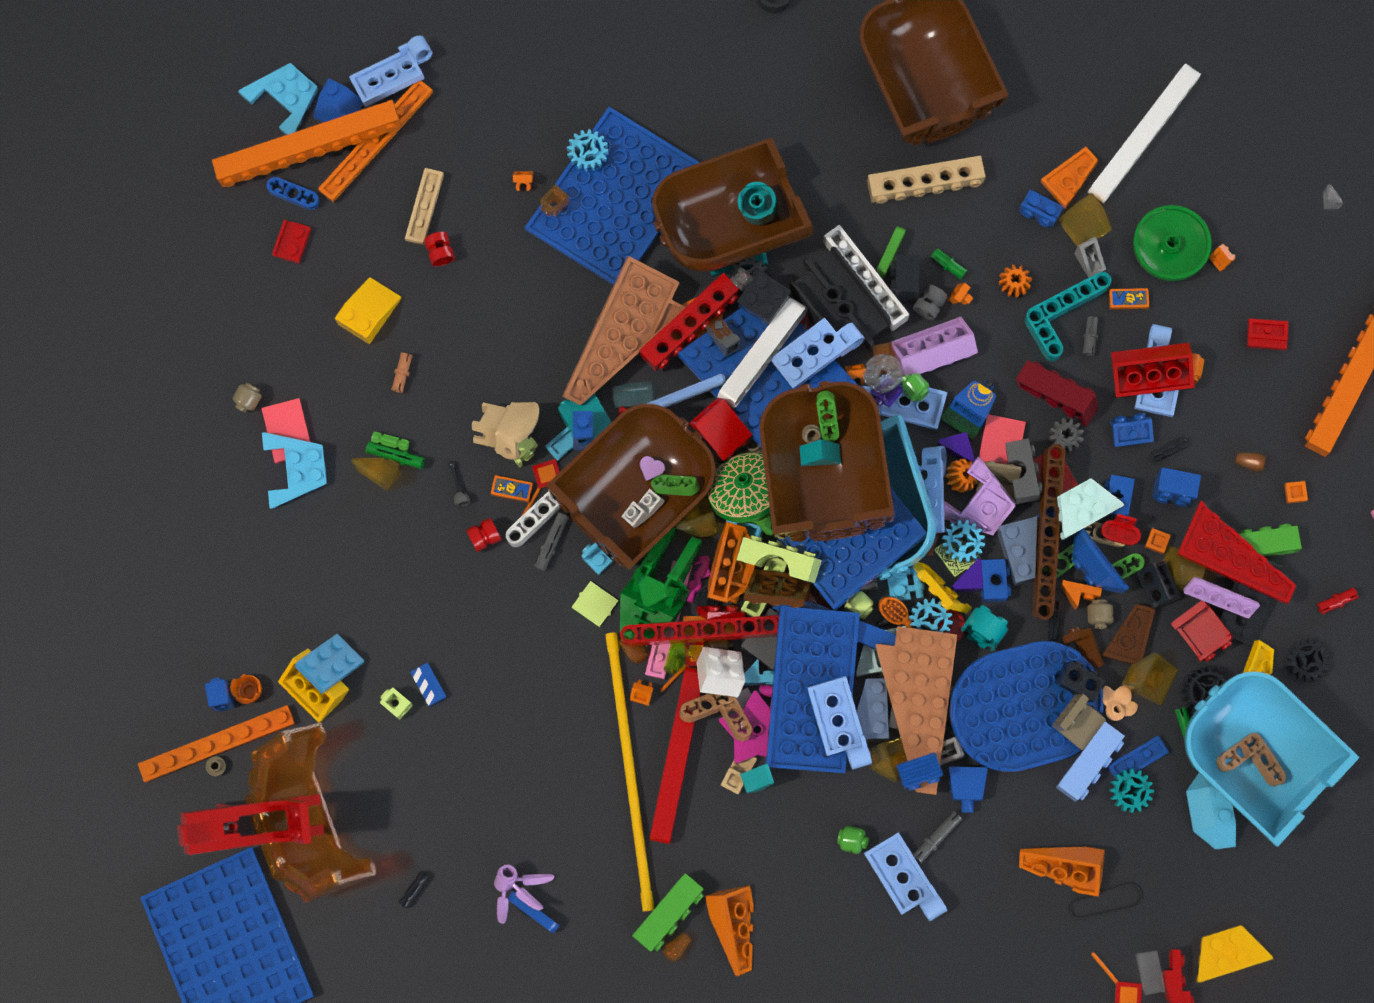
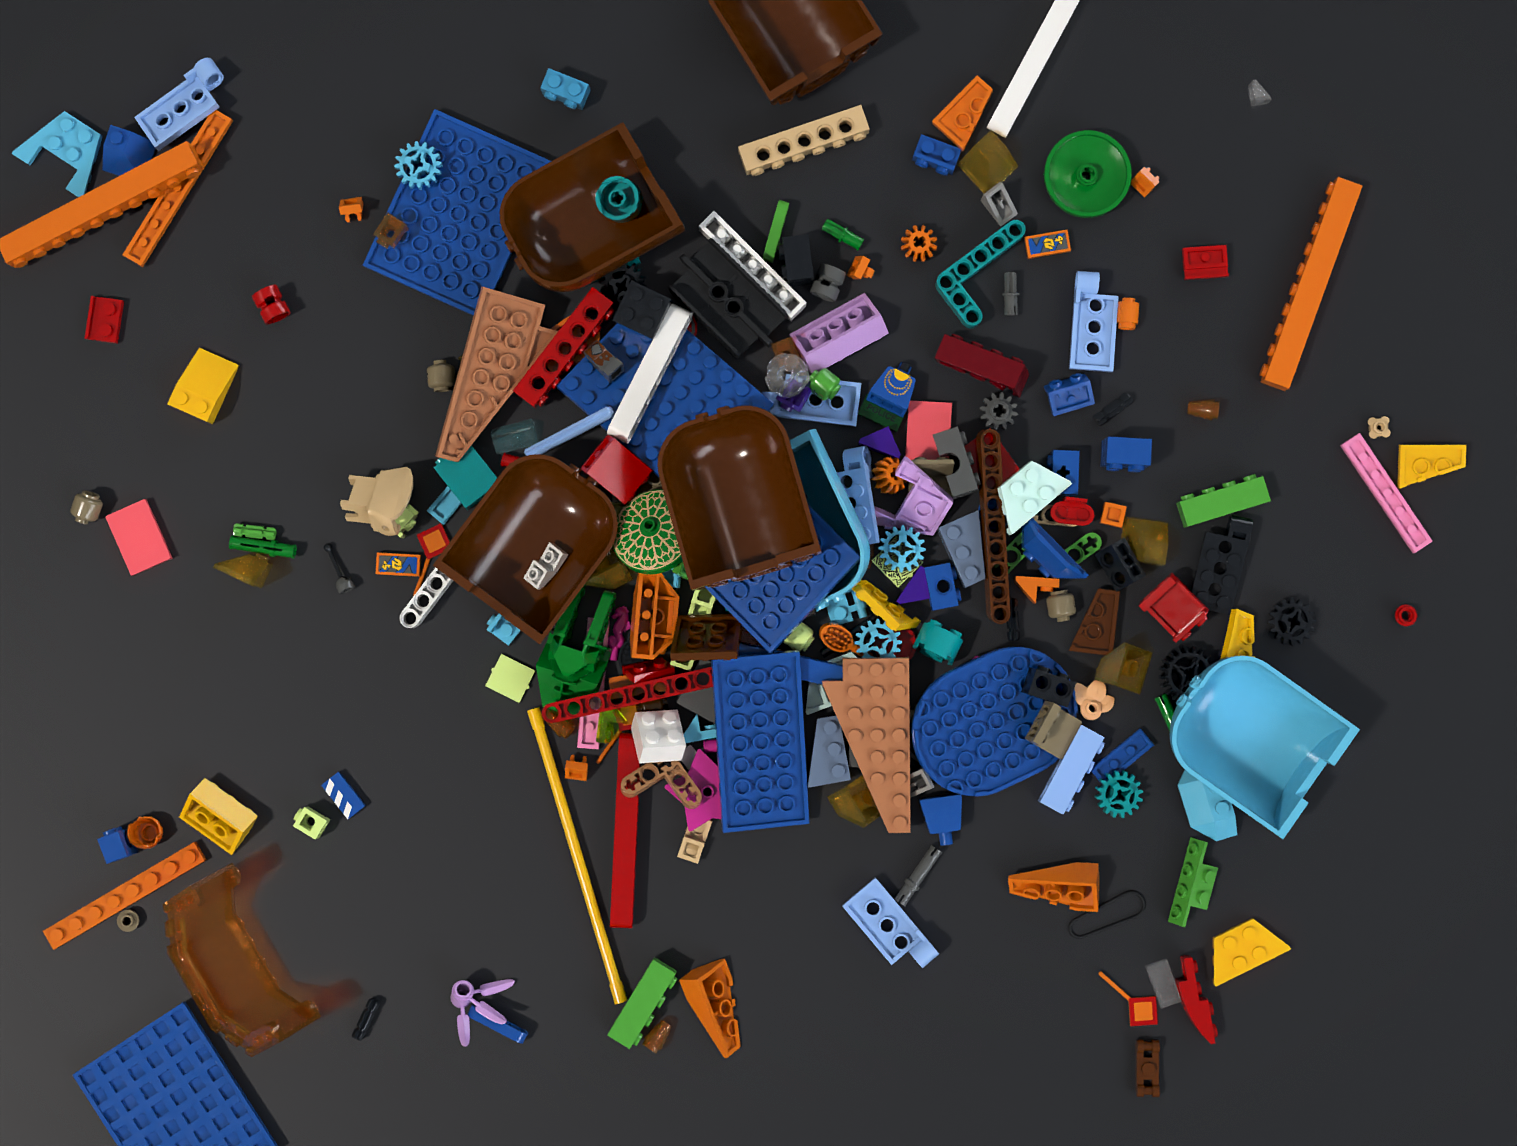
camera: 10 degrees left, 10 degrees up
(217, 827) = (139, 999): red piece -> none
(289, 186) = (82, 254): blue beam -> none
(303, 464) = (163, 574): medium azure wing -> none
(329, 663) = (230, 792): dark azure plate -> none
(401, 372) = (253, 452): nougat pin -> none
(424, 206) = (246, 256): tan plate -> none
(483, 534) = (375, 622): red wheel -> none
(547, 549) = (451, 617): dark grey pin -> none
(577, 332) = (441, 376): none -> dark tan head
(582, 429) = (464, 491): blue torso -> none
(651, 468) = (547, 519): lavender tile -> none
(675, 485) = (571, 531): bright green beam -> none
(724, 106) = (565, 89): none -> dark azure brick
(741, 279) = (614, 291): clear wheel -> none
(757, 779) = (715, 846): teal slope -> none
(800, 566) = (727, 610): yellowish green arch -> none
(811, 427) = (720, 467): dark tan plate -> none
(820, 453) = (730, 483): teal slope -> none
(830, 409) = (733, 435): bright green beam -> none
(844, 341) = (738, 348): light blue hinge -> none
(852, 839) = (827, 893): bright green head -> none
(856, 371) = (756, 374): orange tile -> none
(856, 747) = (807, 776): light blue hinge -> none
(919, 771) = (889, 813): blue brick -> none
(1086, 645) = (1050, 642): reddish brown bracket -> none
(1152, 370) = (1084, 324): red slope -> none
(1190, 885) = (1194, 883): none -> bright green bracket
(1221, 597) = (1189, 570): lavender bracket -> none
(1224, 551) = (1186, 518): red wing -> none
(1254, 752) = (1246, 735): medium nougat beam -> none
(1296, 492) = (1257, 437): orange plate -> none
(1337, 600) = (1316, 551): red pin -> none

